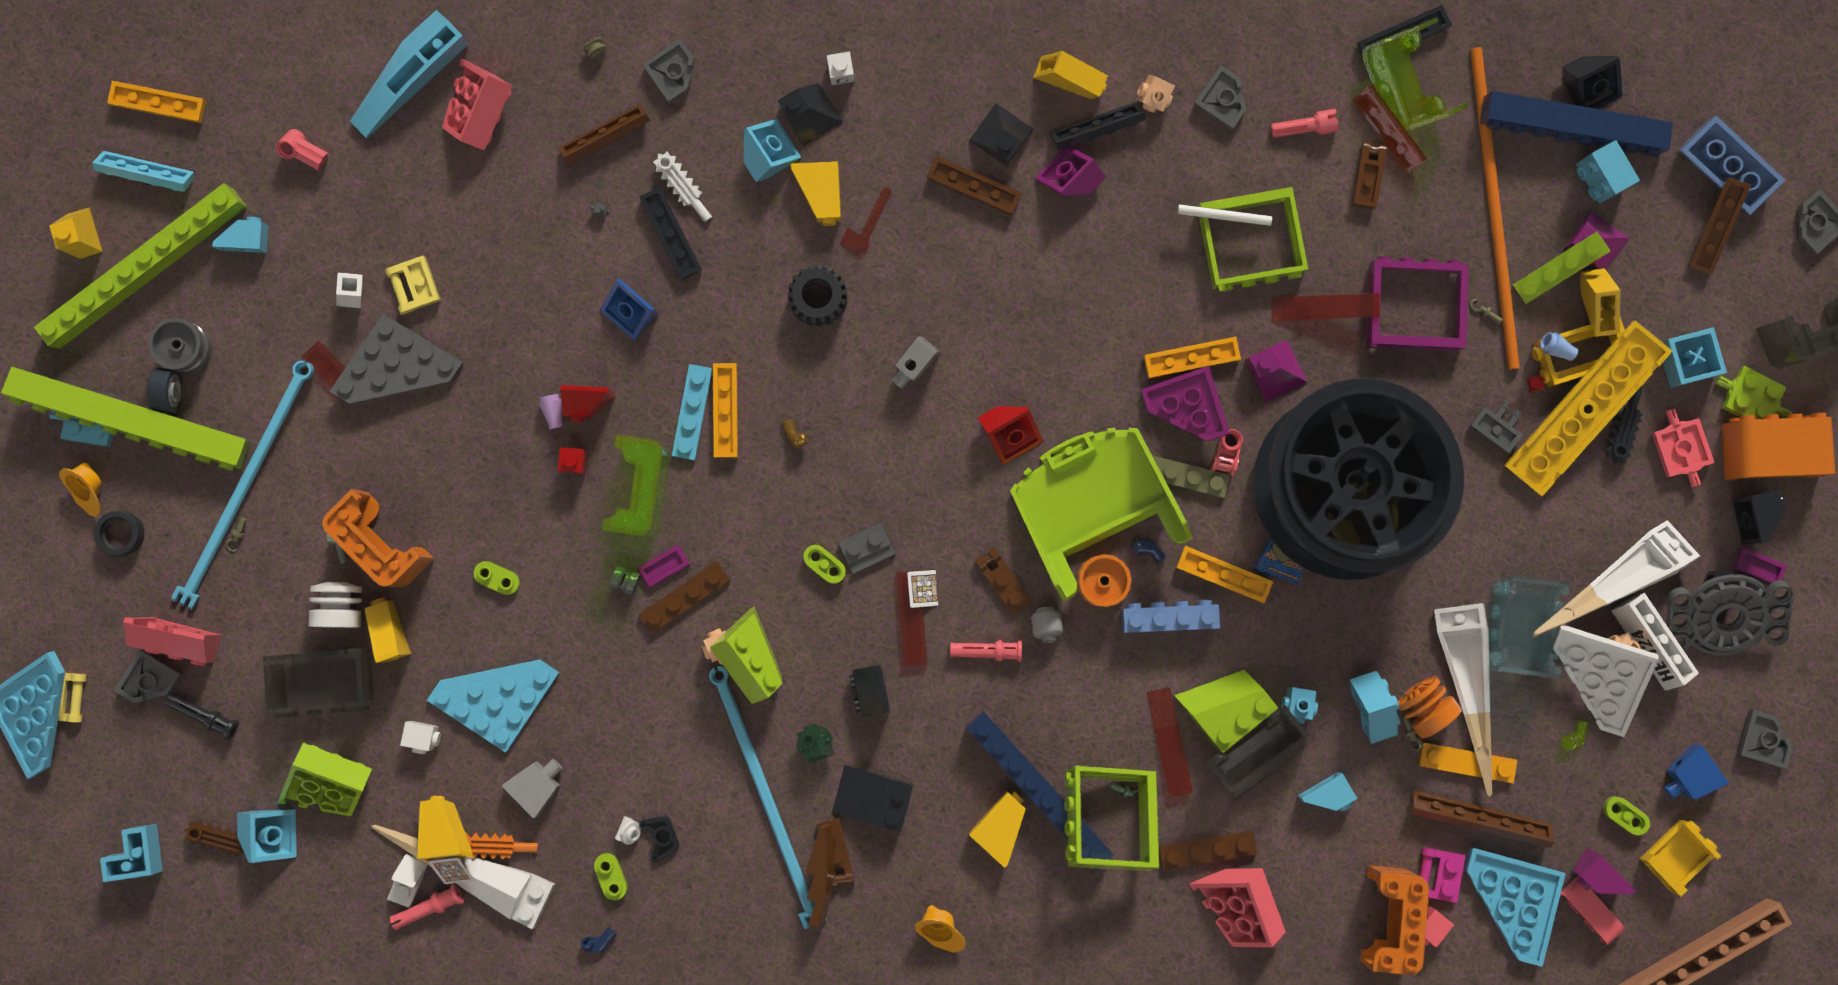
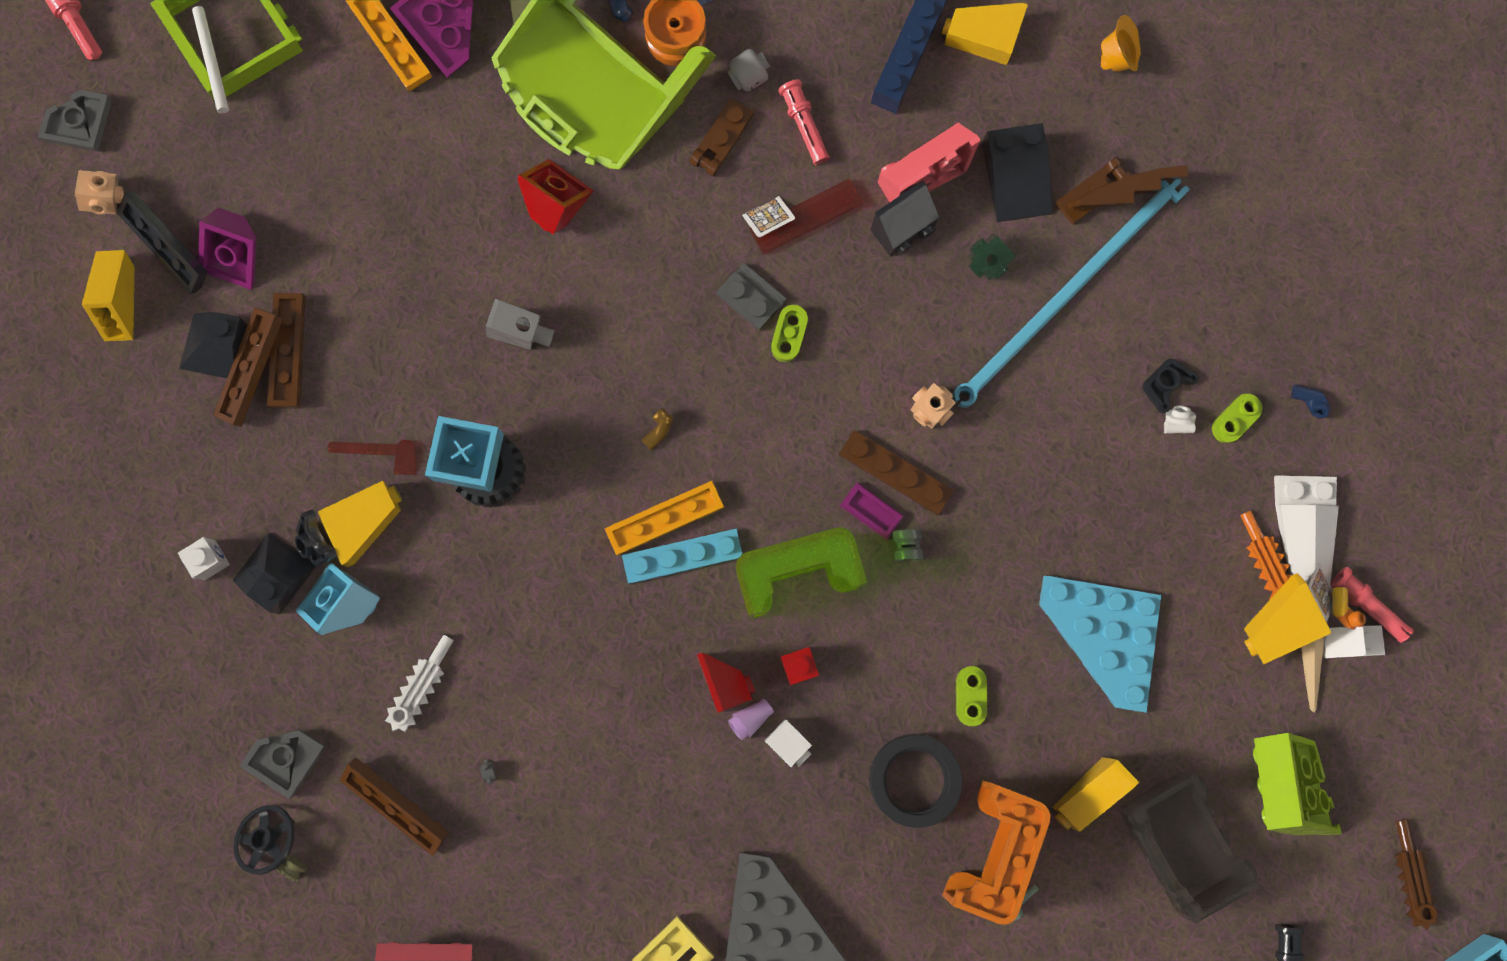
camera: 115 degrees left, 5 degrees down
(267, 834) = (1385, 827): medium azure slope -> none
(335, 605) = (1096, 867): white wheel -> none
(420, 736) = (1191, 699): white brick -> none
(426, 508) = (951, 789): none -> black tyre
(430, 879) = (1343, 612): none -> arm
(521, 429) = (789, 744): none -> white brick
(534, 786) = (1183, 544): light grey torso -> none
(622, 36) = (263, 840): none -> black wheel
(628, 309) = (594, 682): blue slope -> none
(670, 233) = (482, 673): black plate -> none
(749, 657) = (932, 363): lime wedge -> none
(819, 148) = (310, 540): none -> black piece
(826, 281) = (464, 453): none -> medium azure brick
(907, 725) = (934, 162): none -> coral wedge
(971, 153) = (248, 367): none -> reddish brown plate

